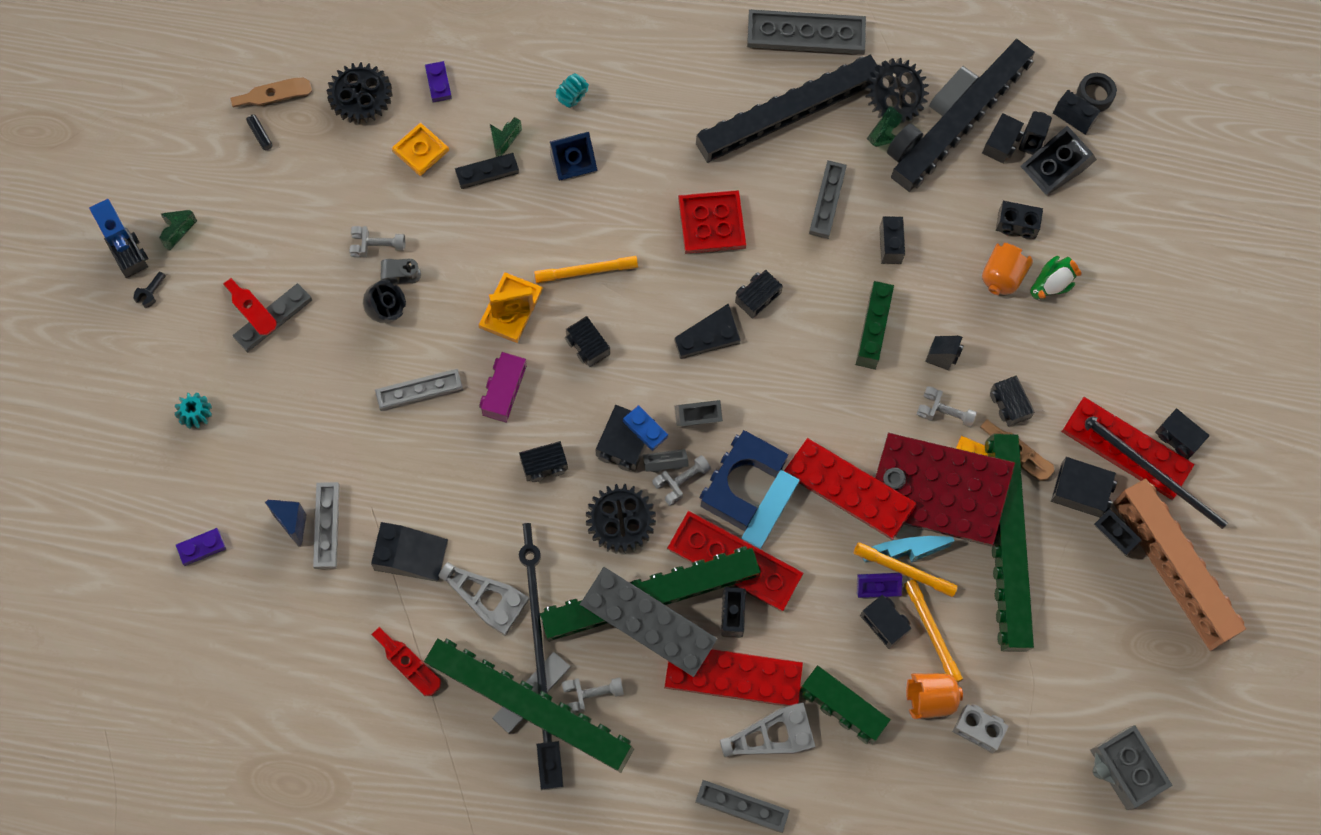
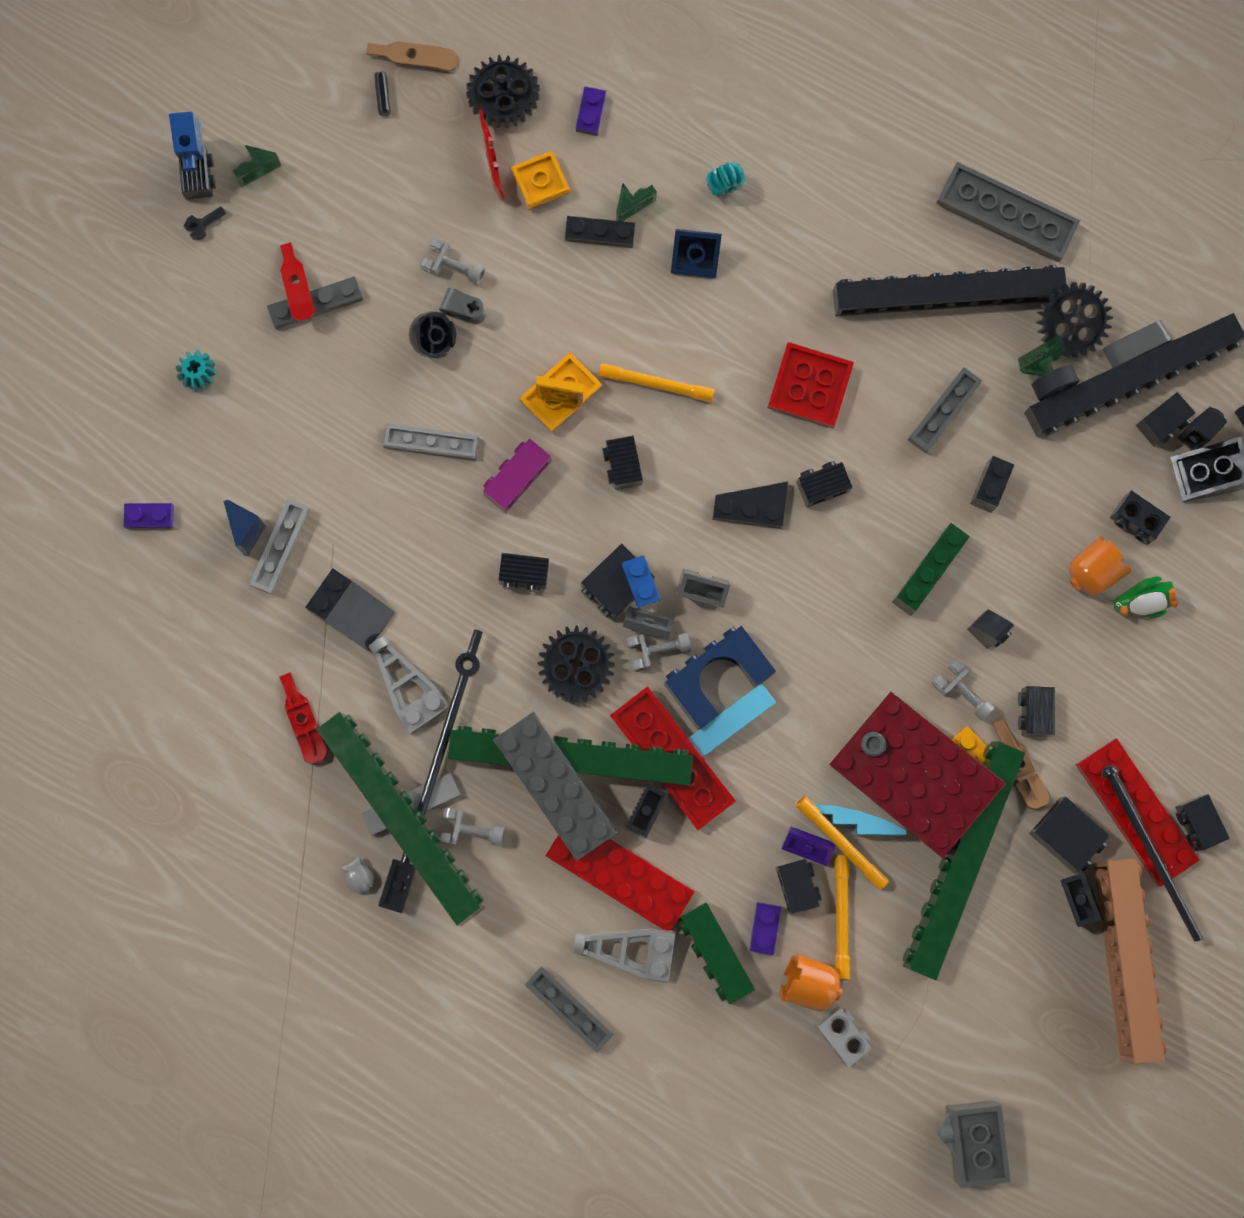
camera: 20 degrees right, 10 degrees up
(372, 147) = (491, 157): none -> red piece
(512, 772) = (358, 876): none -> light grey animal
(850, 489) = (824, 734): red plate -> none
(874, 668) = (765, 928): none -> dark purple plate

